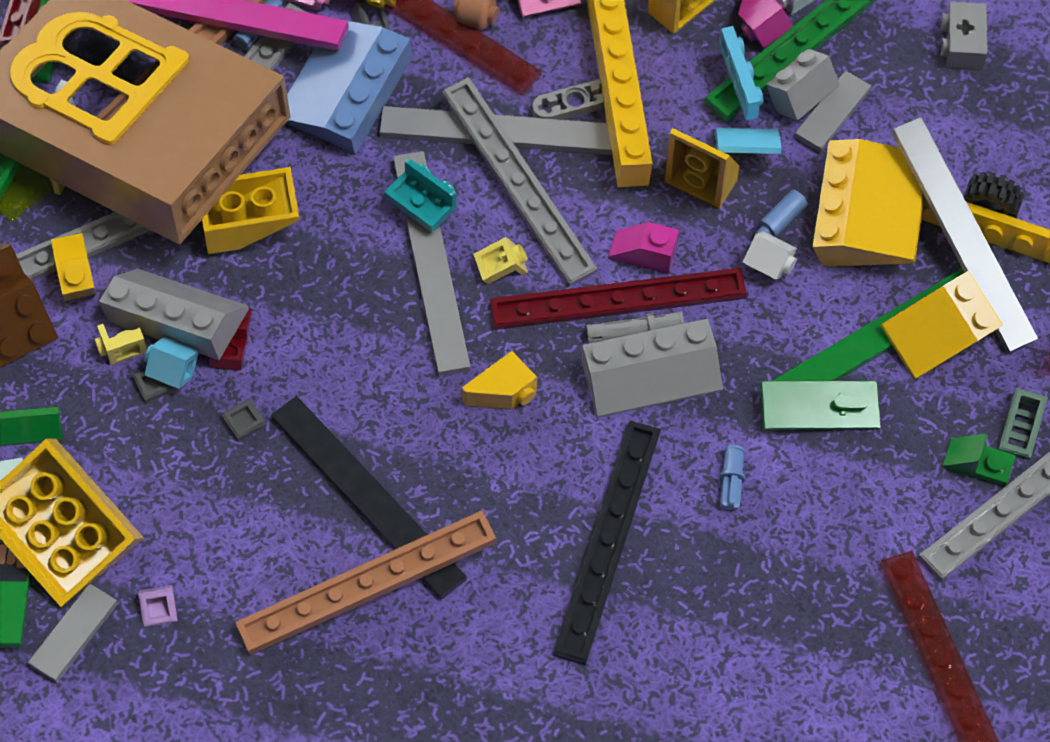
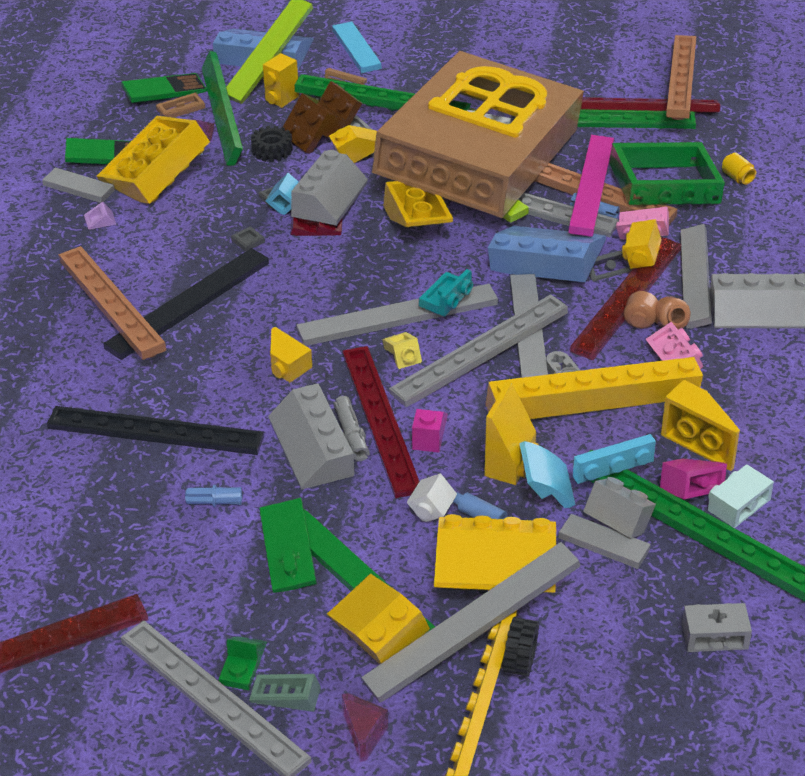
camera: 85 degrees right, 20 degrees down
(40, 392) = (271, 143): none -> black tyre
(122, 346) = (299, 167): light yellow bracket -> none

